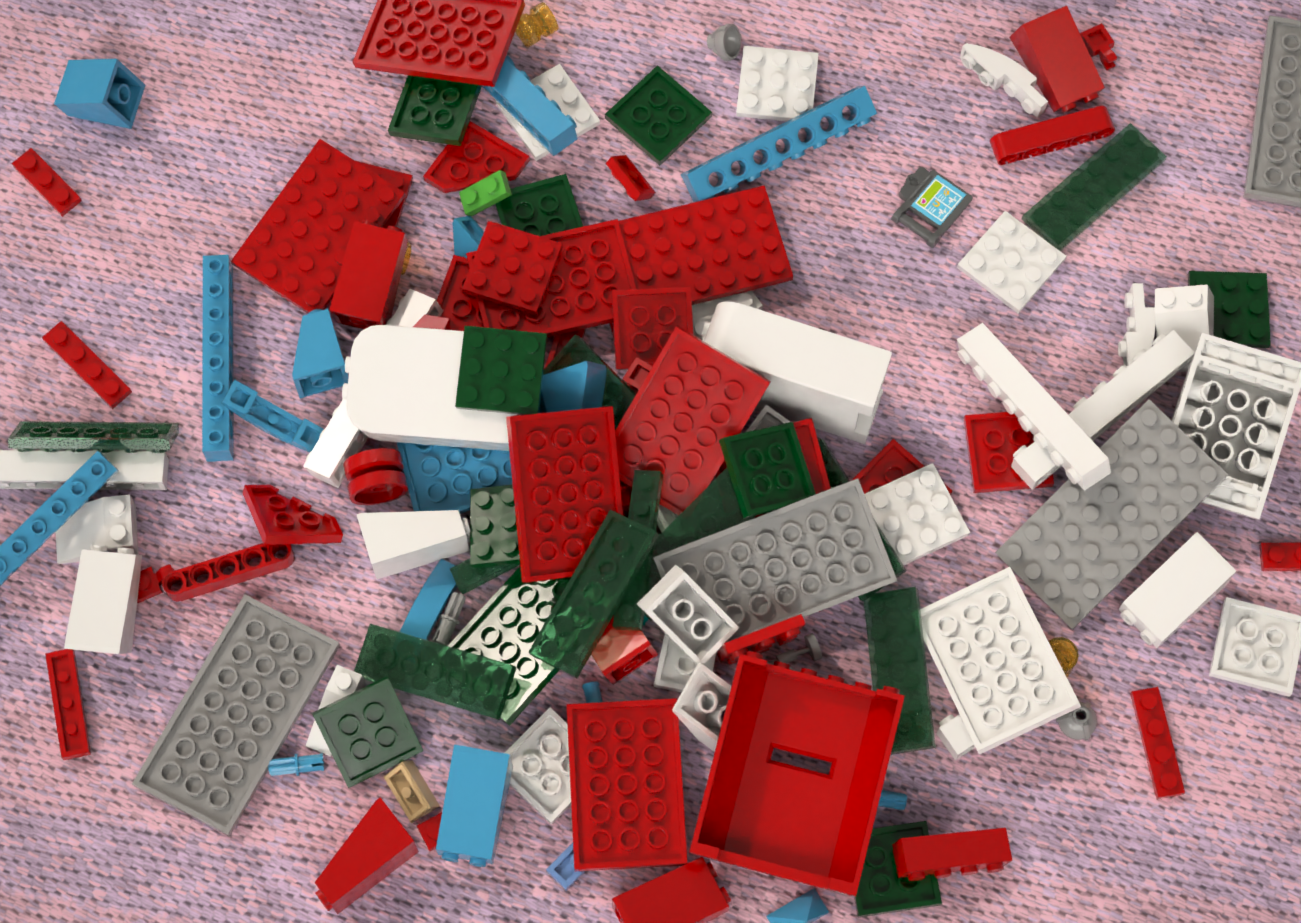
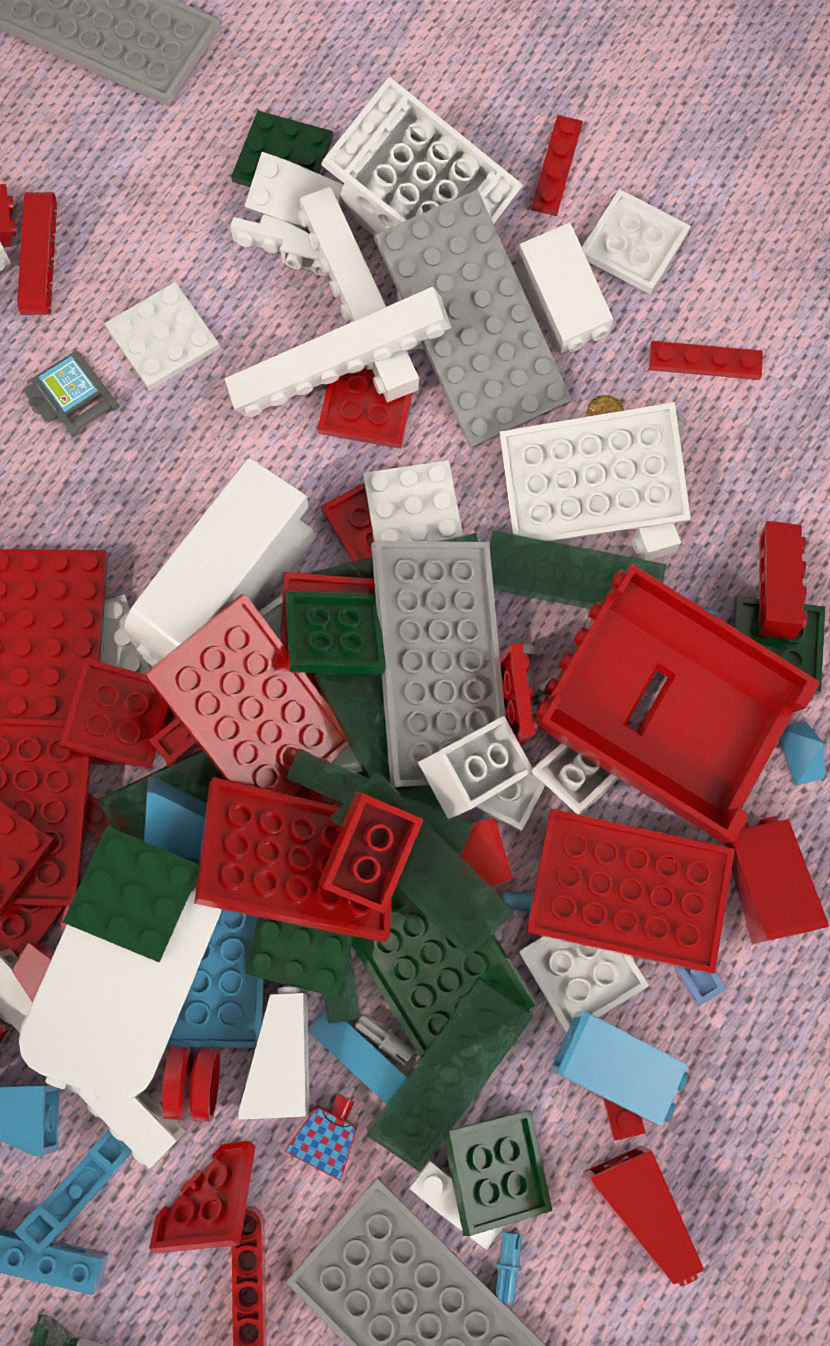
camera: 75 degrees left, 5 degrees up
(360, 594) = (326, 1138): none -> torso
(411, 790) = (571, 1135): tan slope -> none
(586, 541) = (370, 852): none -> red brick
(1094, 187) = (109, 234): clear green plate -> none

